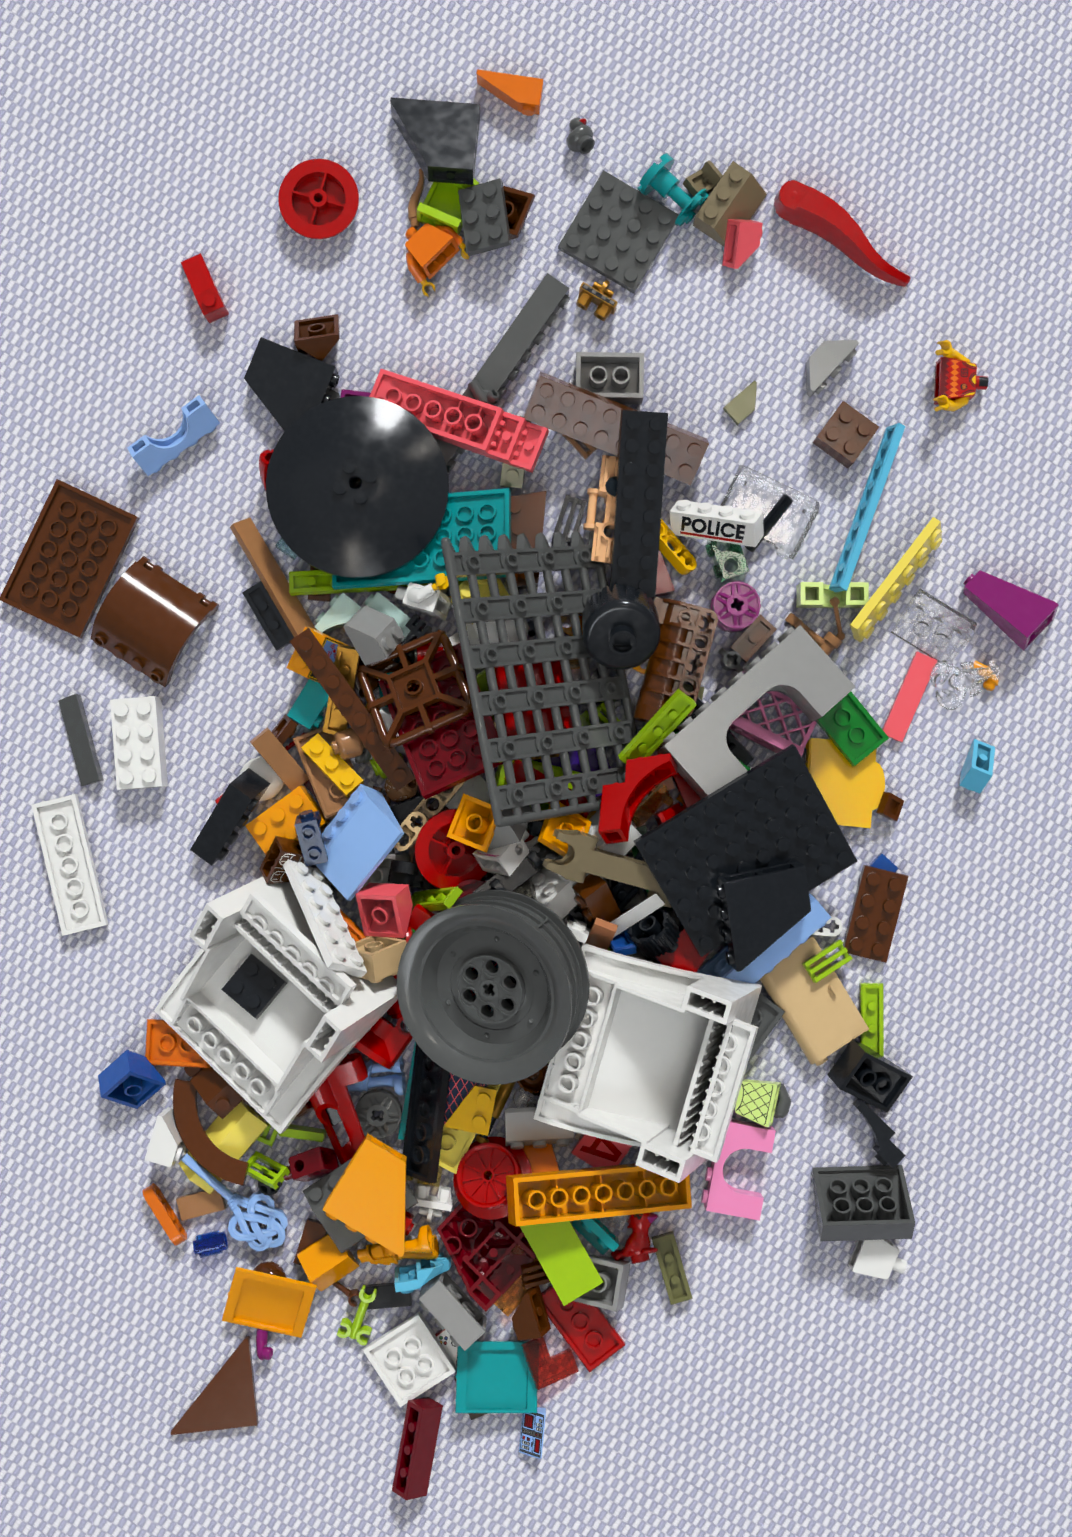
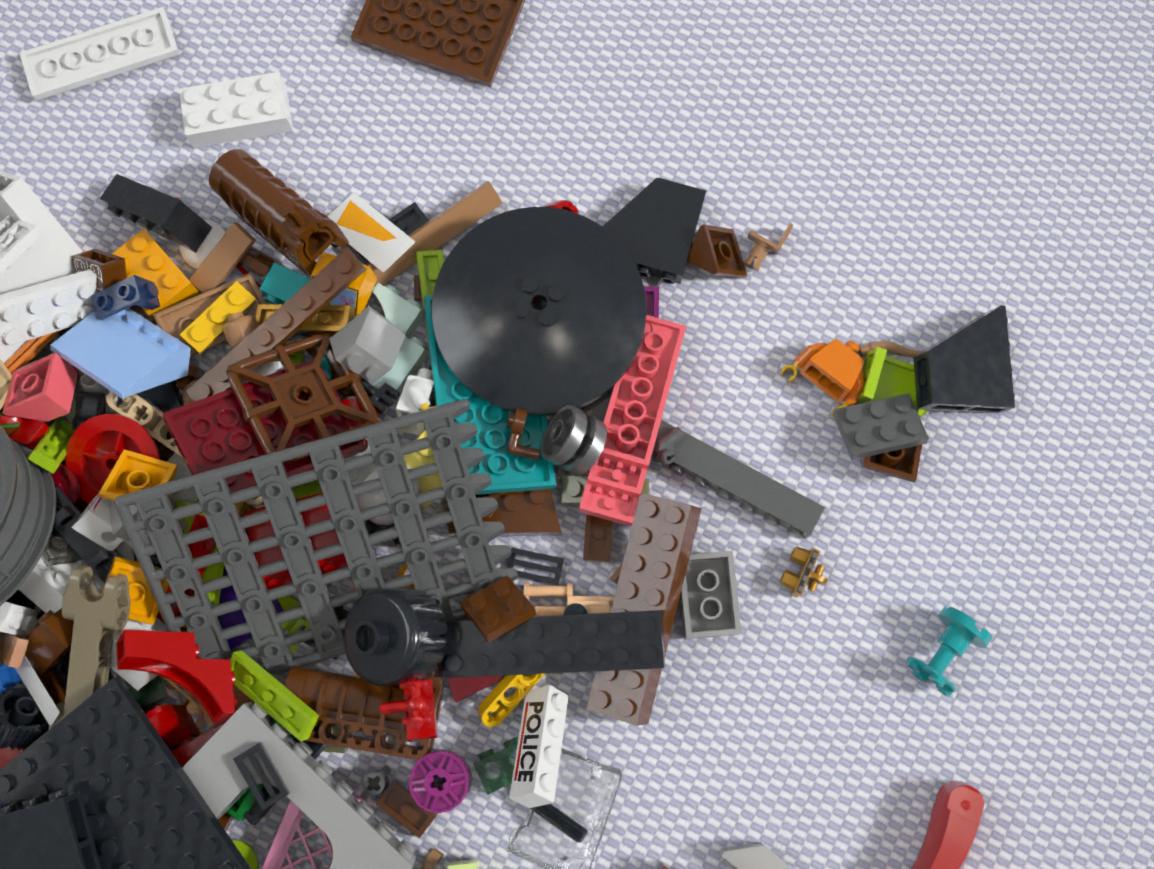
camera: 85 degrees right, 10 degrees down
(80, 740) = (239, 52): dark grey slope -> none
(150, 619) = (377, 107): reddish brown hinge -> none
(154, 453) = (562, 91): light blue arch -> none
(204, 288) = (755, 128): red slope -> none
(243, 708) = (274, 210): none -> reddish brown piece
(265, 634) = (370, 232): none -> white sticker
(314, 295) = (762, 247): none -> medium nougat bracket
(315, 182) = (893, 233): red piece -> none
(457, 514) = (516, 424): none -> reddish brown plate
(474, 468) = (573, 440): none -> flat silver wheel
(517, 91) = (1038, 453): orange slope -> none
(553, 465) = (597, 539): none -> reddish brown plate
(581, 136) = (997, 533): dark grey animal -> none
(605, 544) = (498, 608): none -> reddish brown plate
(618, 231) = (890, 590): dark grey plate -> none
(680, 613) = (418, 708): none -> red piece
(703, 742) = (284, 791): none -> black tile
(704, 178) = (968, 688): dark tan bracket -> none
(733, 197) = (941, 725): dark tan slope -> none
(740, 241) = (899, 743): coral slope -> none
(742, 404) = (698, 766): tile -> none

